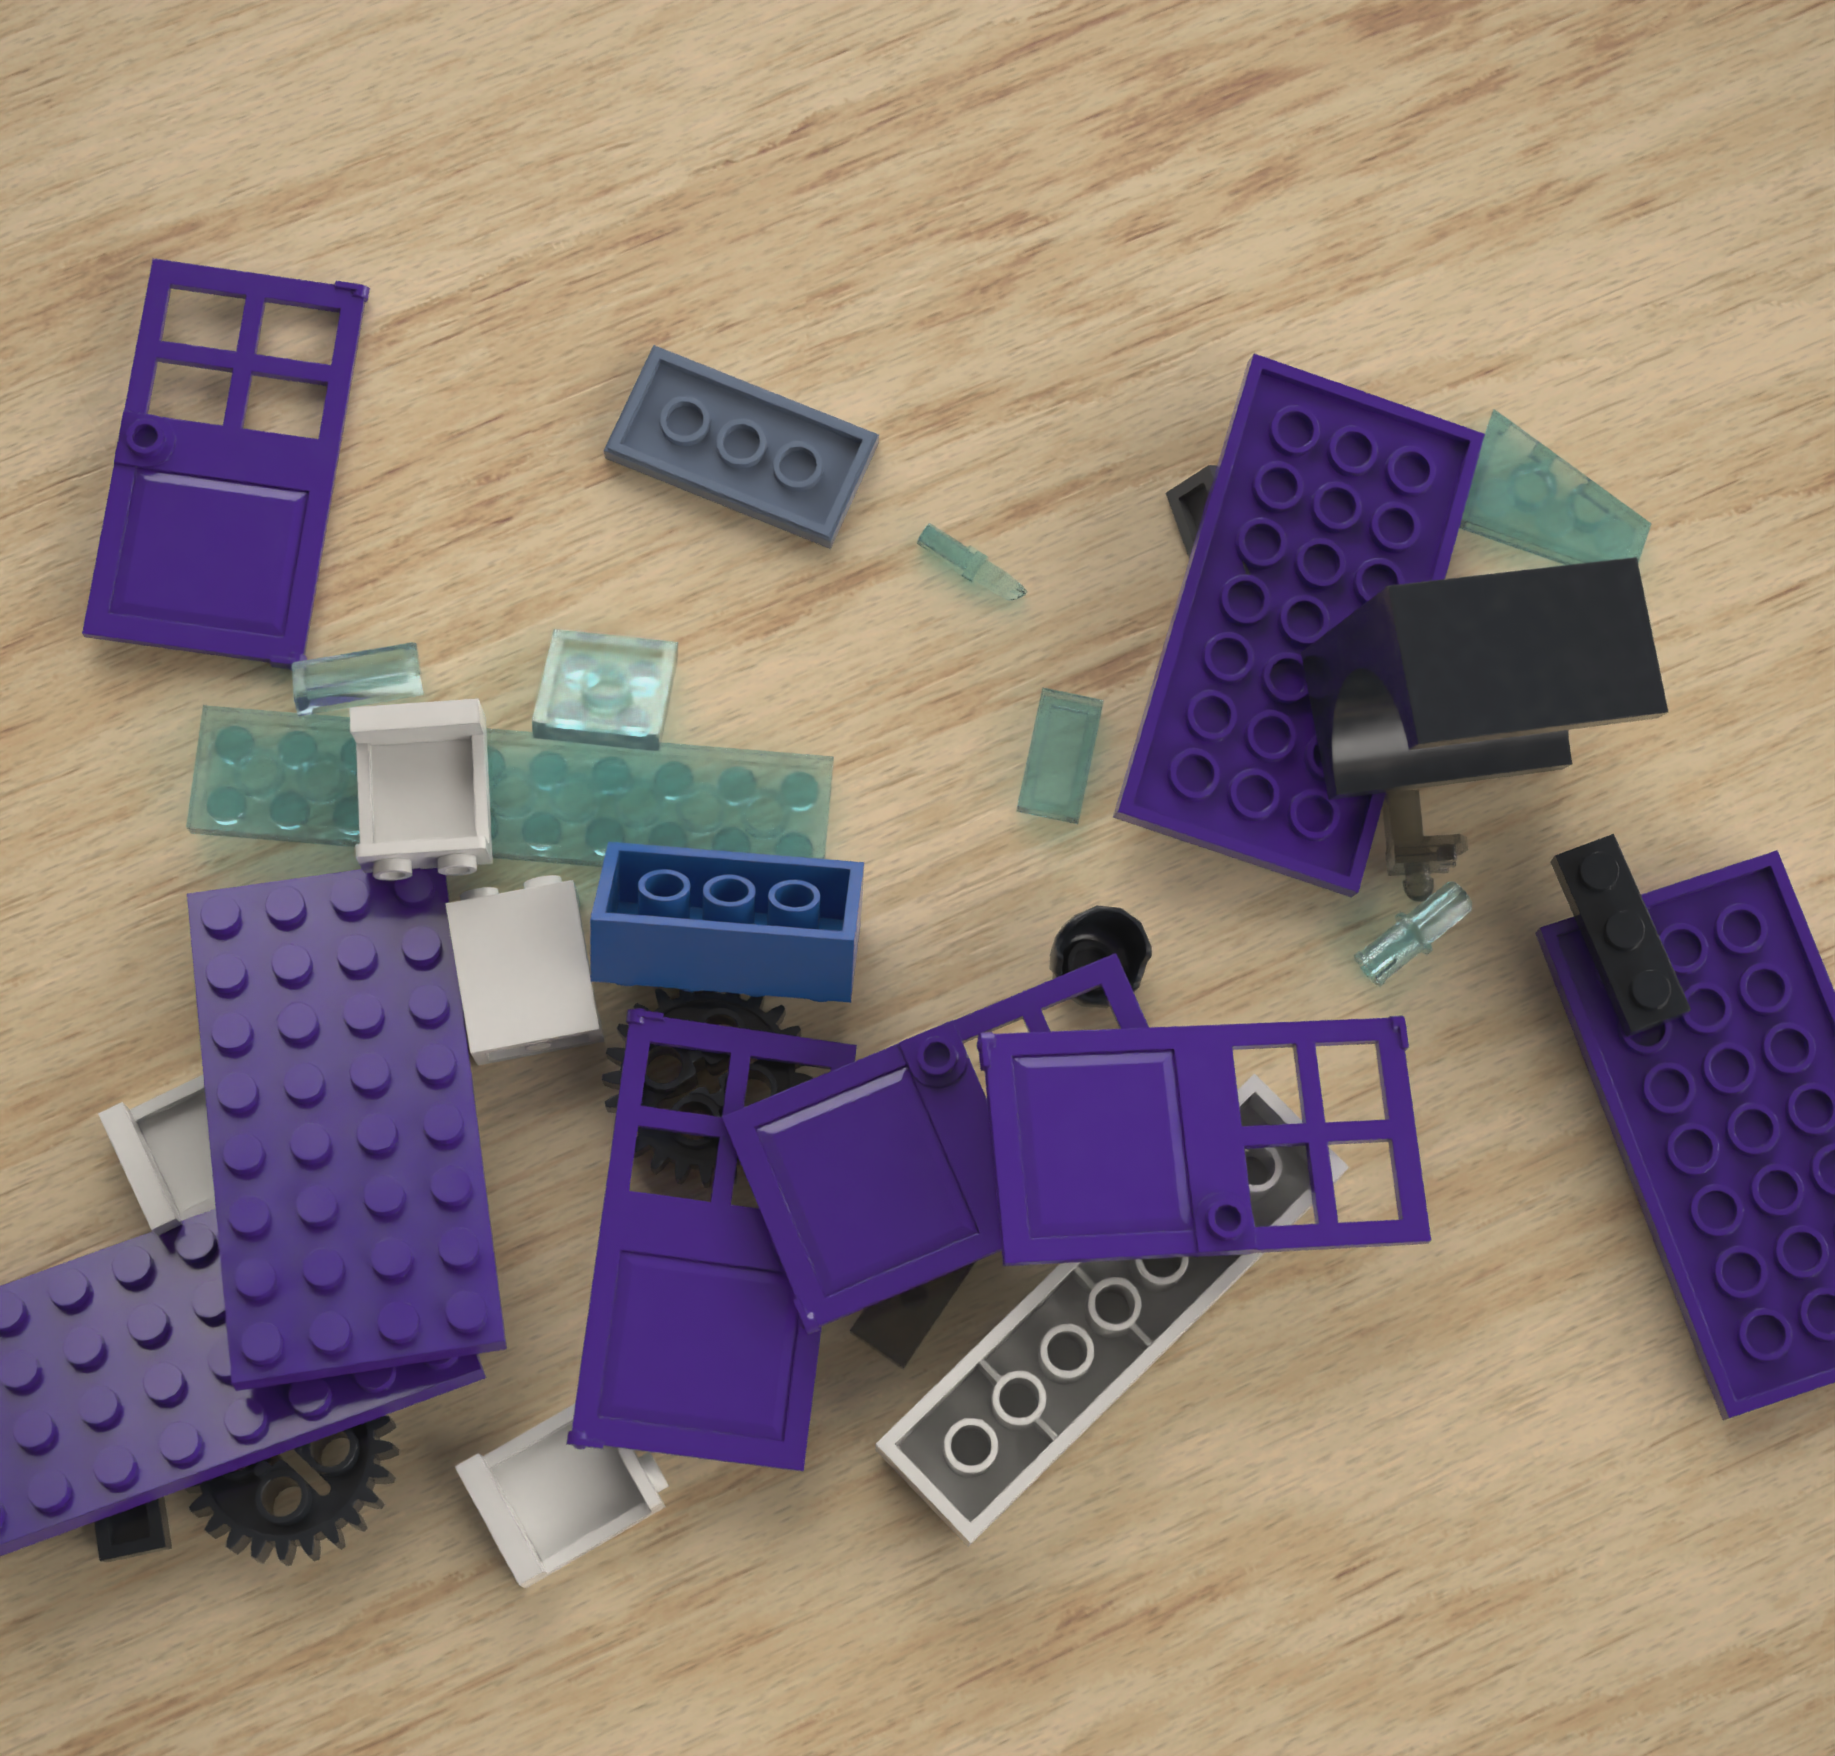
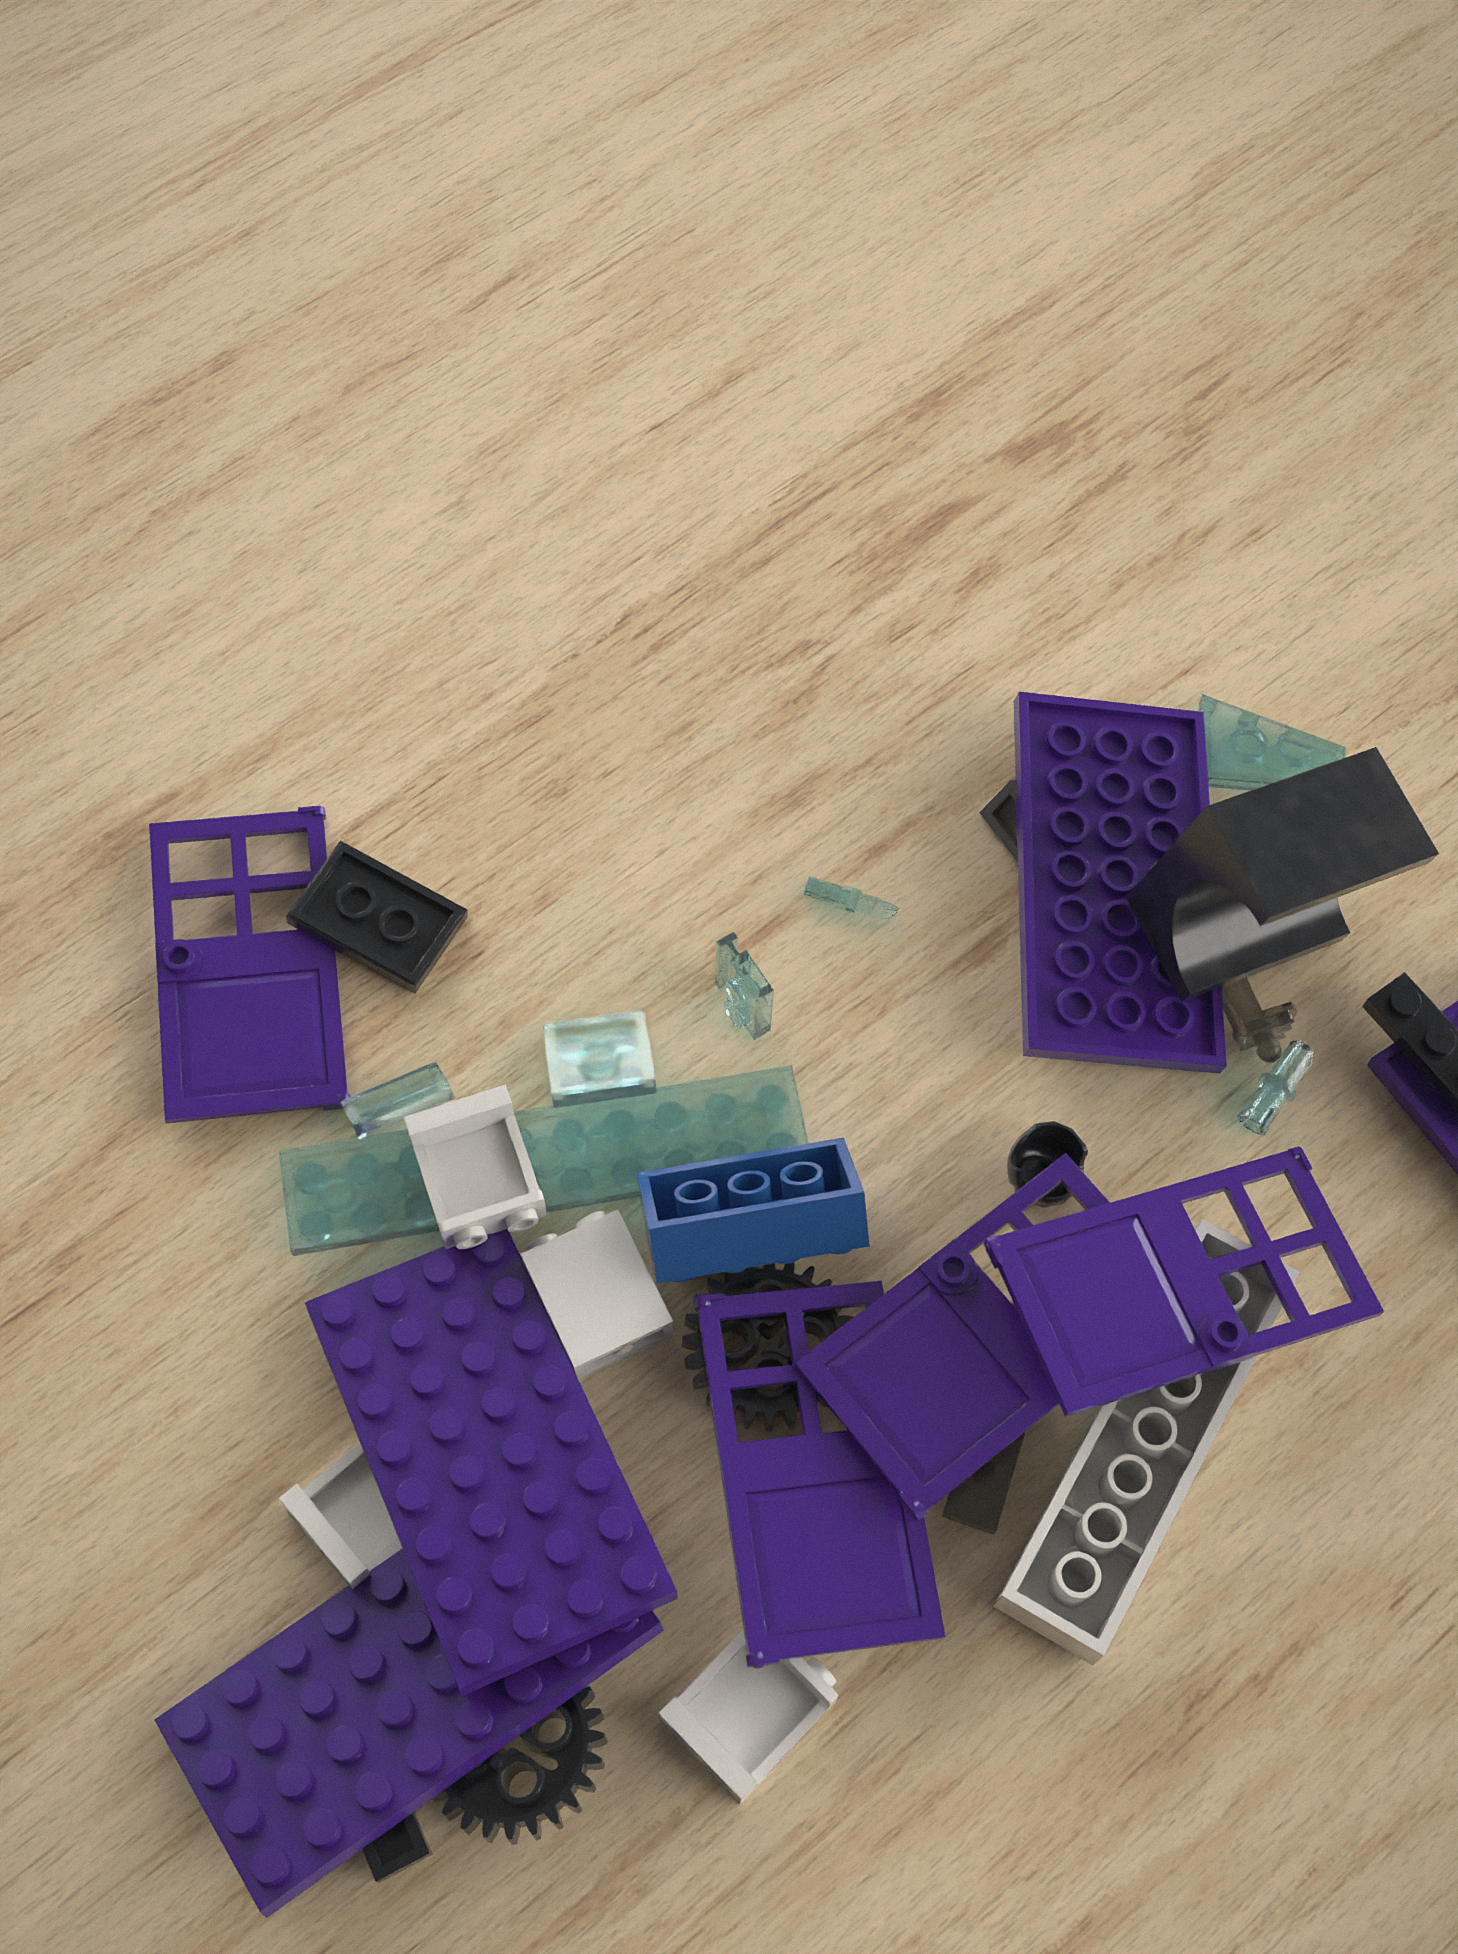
camera: 15 degrees left, 10 degrees down
(394, 443) = (377, 916): none -> black tile
(741, 446) = (647, 855): sand blue tile -> none
(797, 648) = (748, 991): none -> clear light blue plate
(1060, 755) = (964, 1023): clear light blue tile -> none

